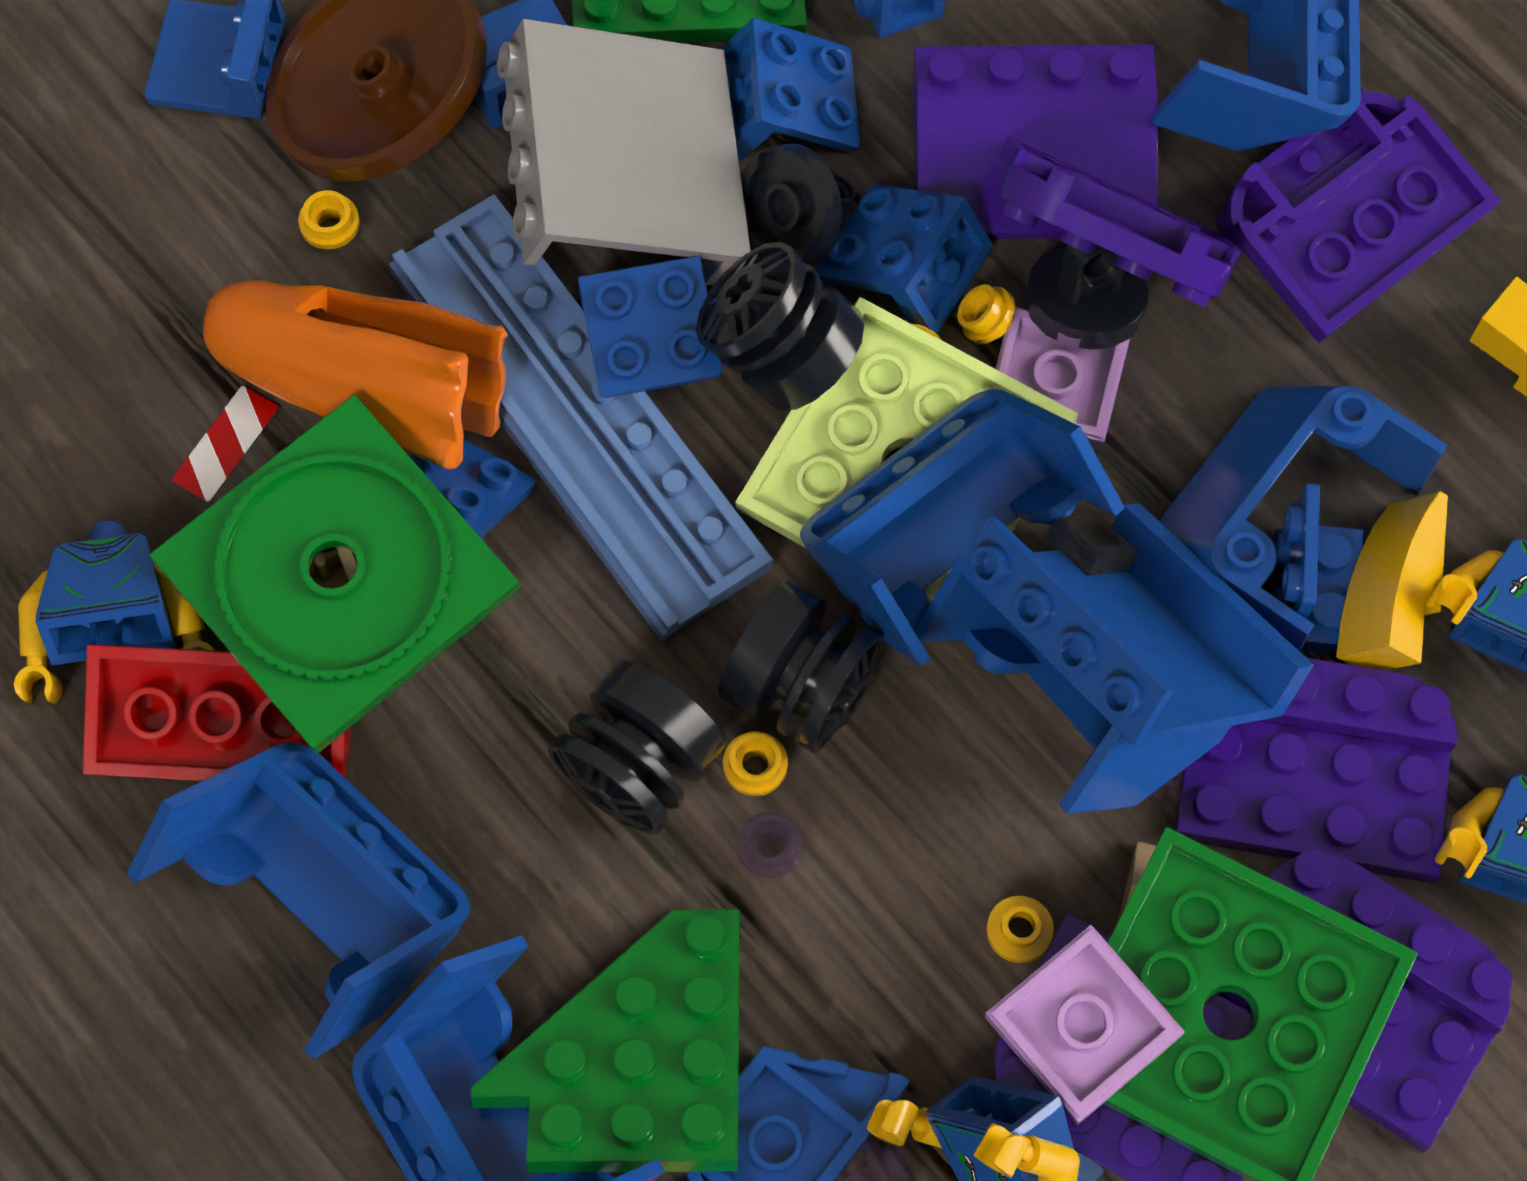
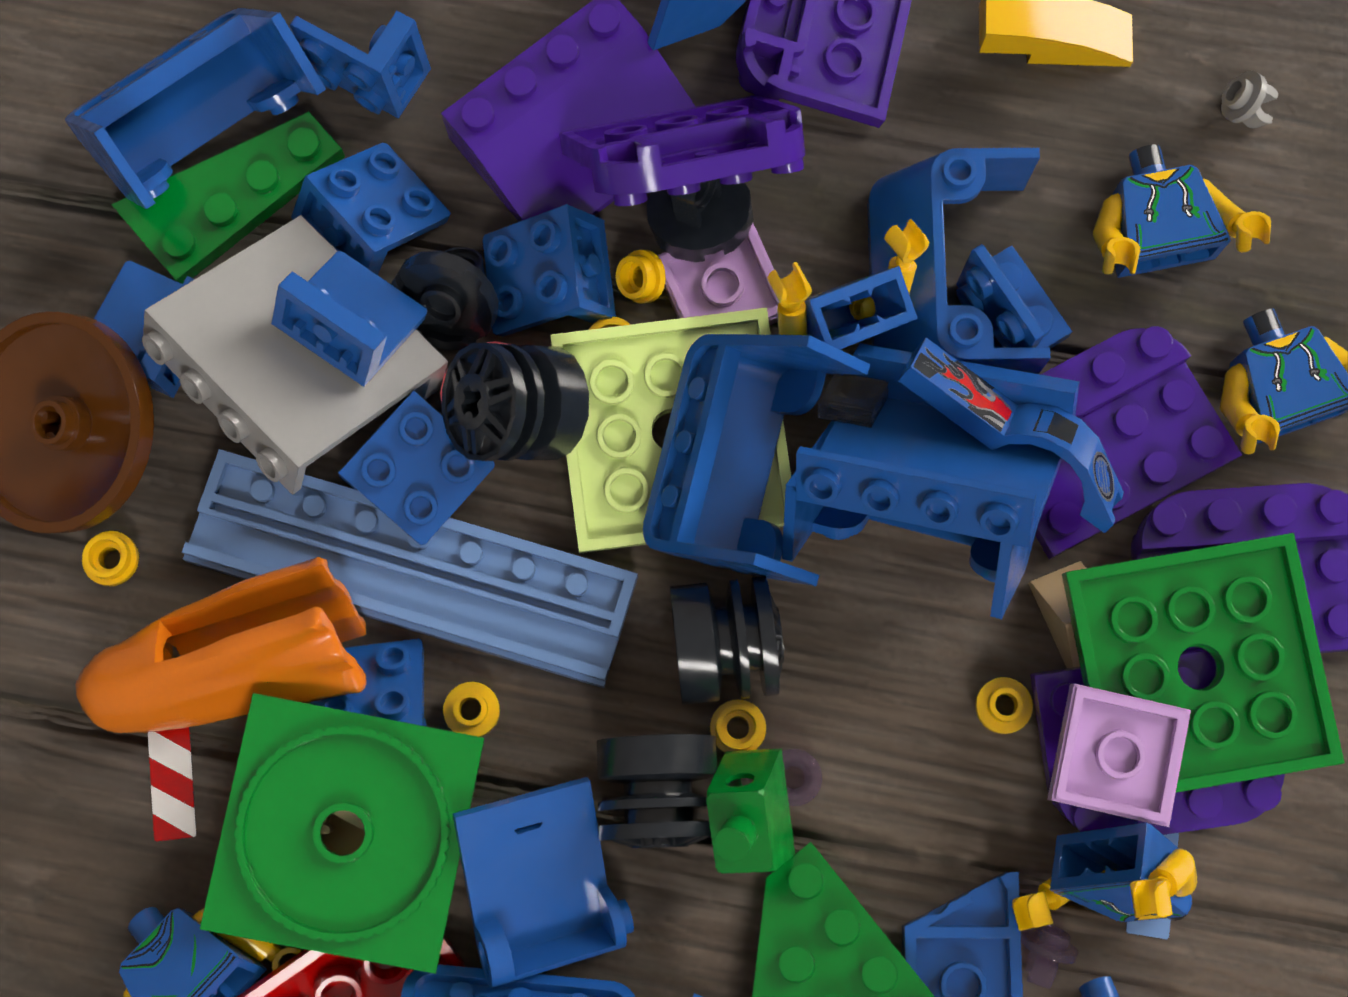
camera: 35 degrees left, 10 degrees up
(462, 753) = (539, 888): none -> blue door
(543, 582) = (489, 709): none -> yellow plate
(690, 148) = (347, 316): none -> blue bracket
(701, 830) = (753, 820): none -> green torso
(1156, 462) = (857, 307): none -> torso
(1208, 642) = (1001, 422): none -> blue piece
(1392, 583) = (1065, 269): yellow slope -> none

